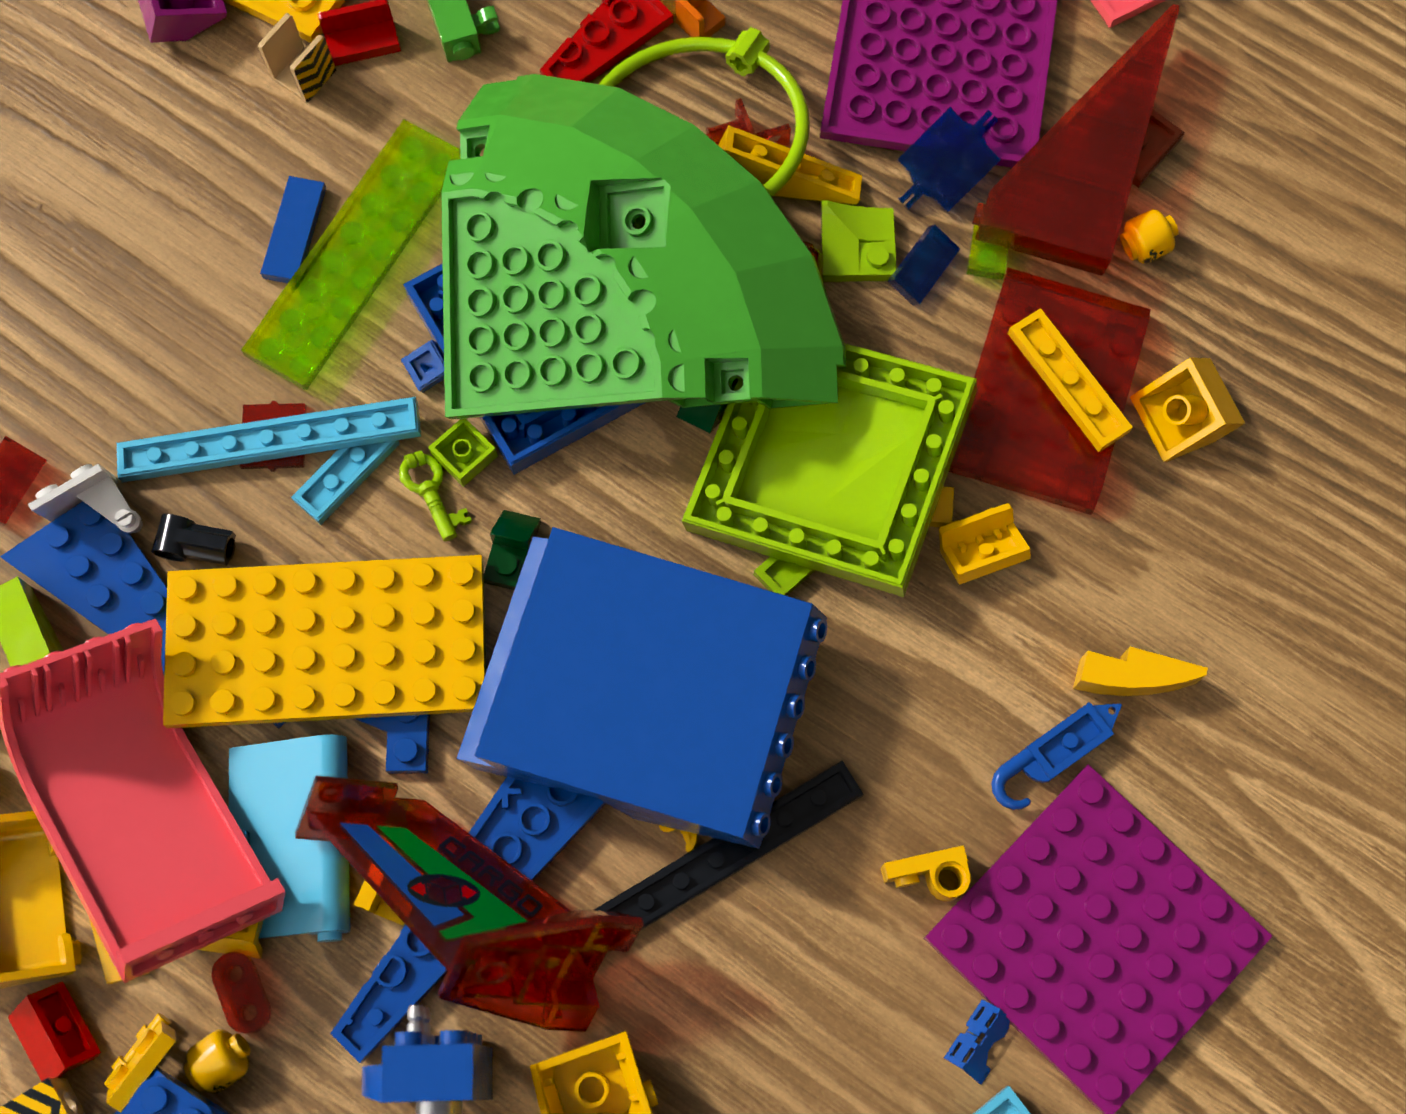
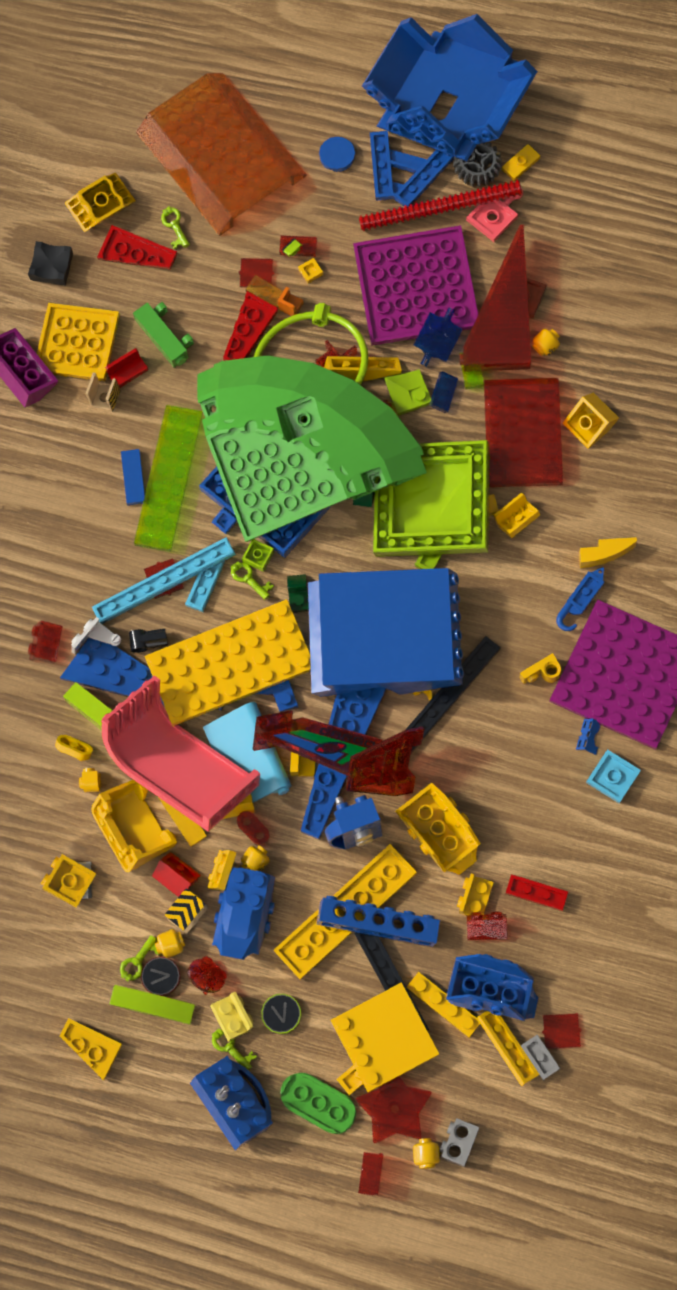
camera: 10 degrees left, 0 degrees up
(1069, 380) = (530, 425): yellow plate -> none

